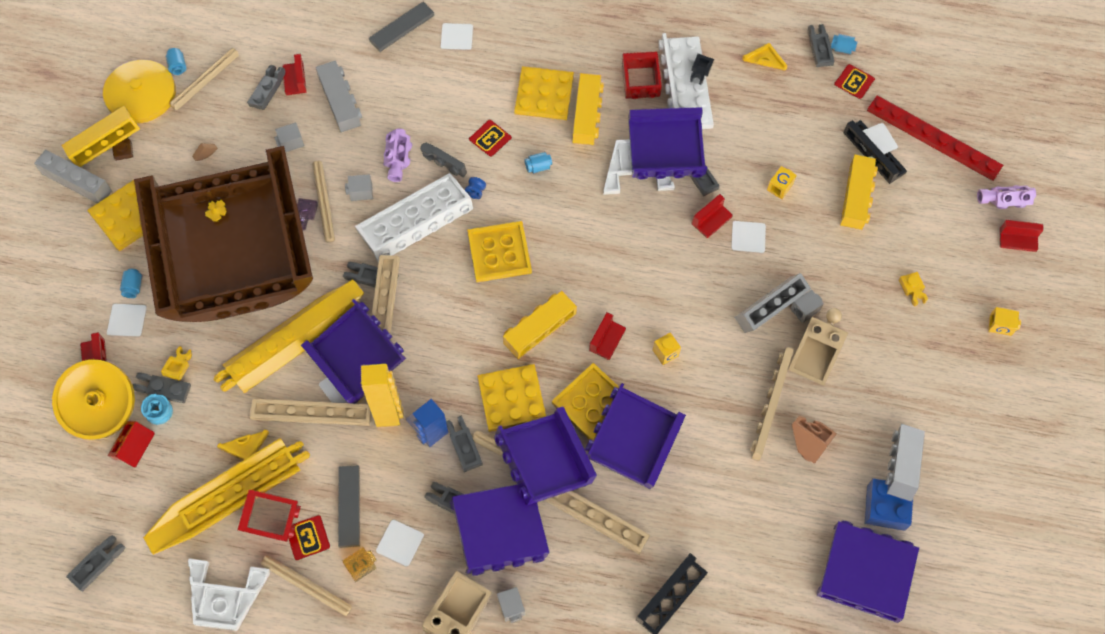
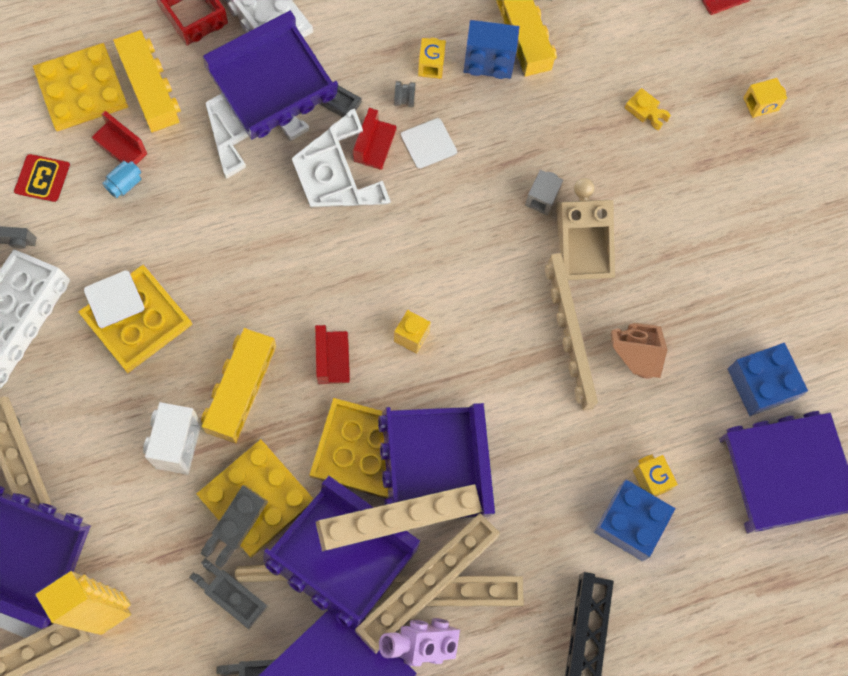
camera: 35 degrees left, 5 degrees up
(428, 423) = (166, 596): blue wedge -> none
(475, 187) = (58, 252): blue wheel -> none
(481, 333) = (172, 438): none -> white brick
(490, 404) = (235, 524): none -> dark grey hinge
(493, 233) = (114, 299): none -> white sticker
(549, 138) = (119, 141): none -> red panel
(562, 534) = (421, 642): none -> lavender brick
(588, 503) = (428, 581): none -> tan plate
(592, 452) = (397, 517): none -> tan plate
(668, 222) = (326, 171): none -> white wing
(743, 542) = (634, 520): none -> blue brick
(749, 197) = (404, 94): none -> dark grey wheel
(772, 303) = (504, 209): light grey brick -> none
(773, 523) = (655, 475): none -> yellow brick
(824, 195) = (491, 49): none -> blue brick
(905, 462) = (762, 320): light grey brick -> none

